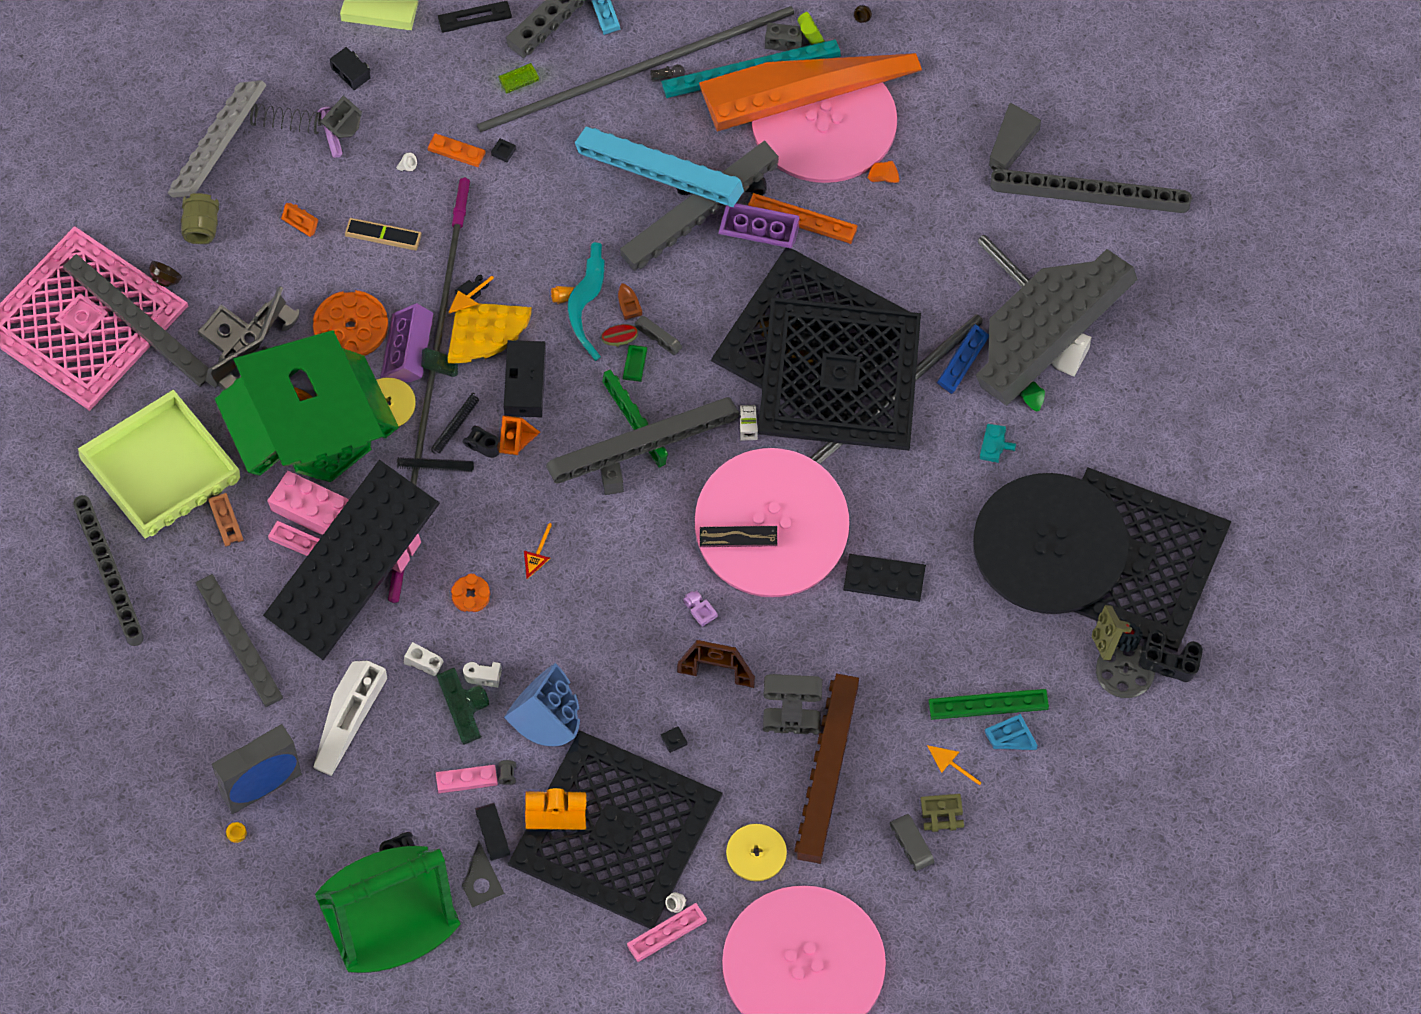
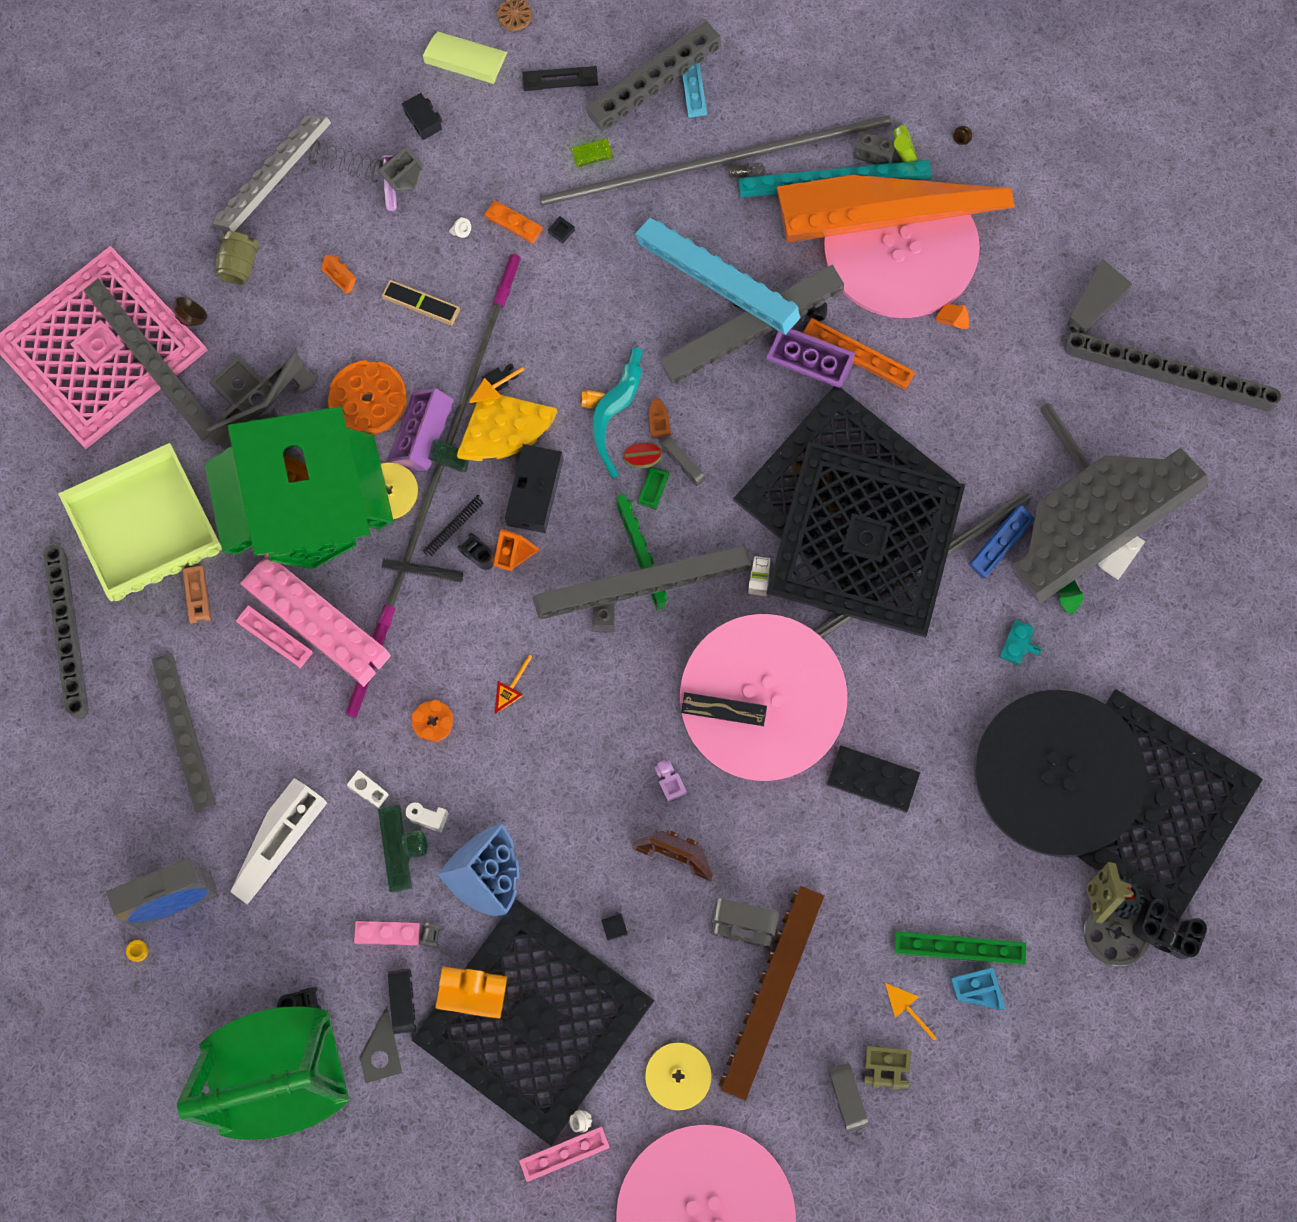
camera: 15 degrees right, 10 degrees up
(351, 559) = (311, 667): black plate -> none

